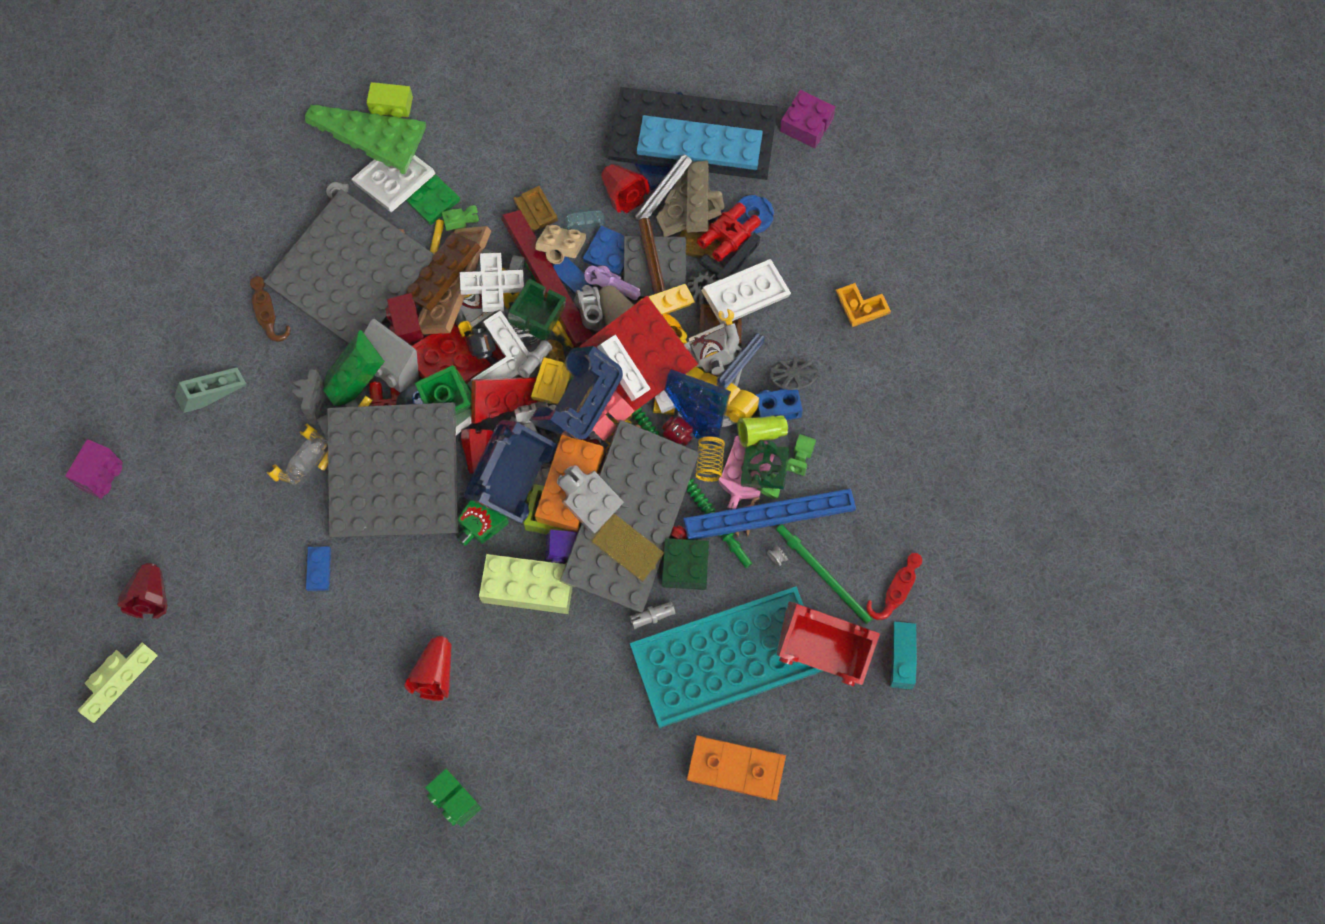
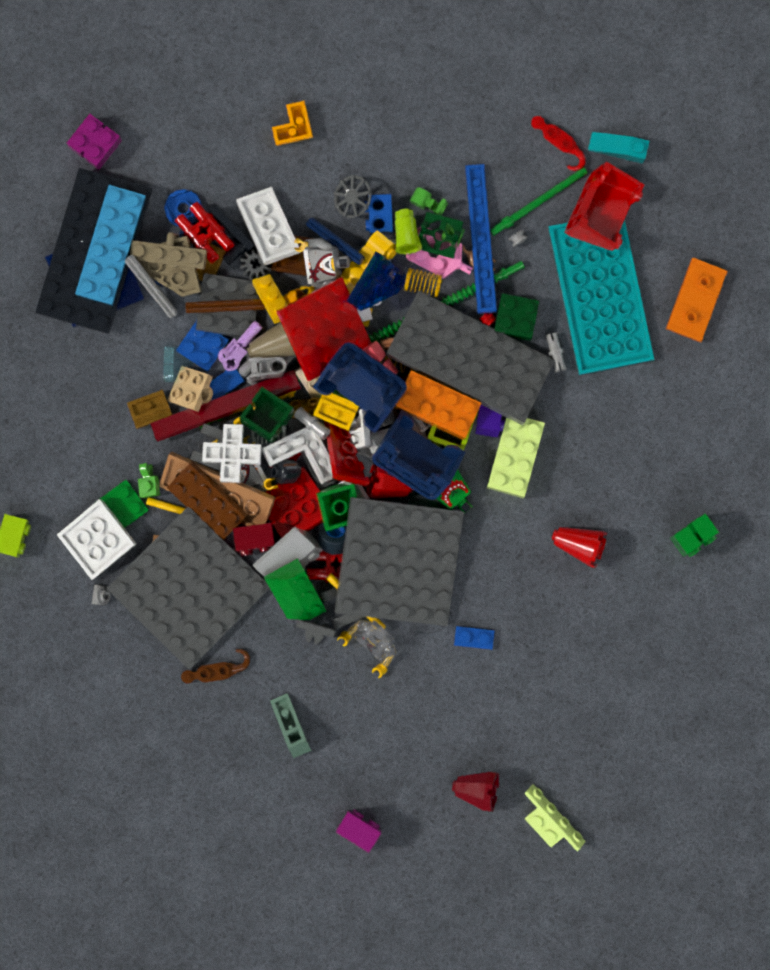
camera: 85 degrees left, 15 degrees up
(381, 137) = (50, 547): bright green wing -> none
(588, 497) = (458, 388): light grey plate -> none
(624, 187) = (140, 324): red cone -> none
(627, 547) = (500, 362): clear yellow piece -> none
(632, 379) = (329, 346): white plate -> none
(677, 431) = (392, 308): dark red head -> none

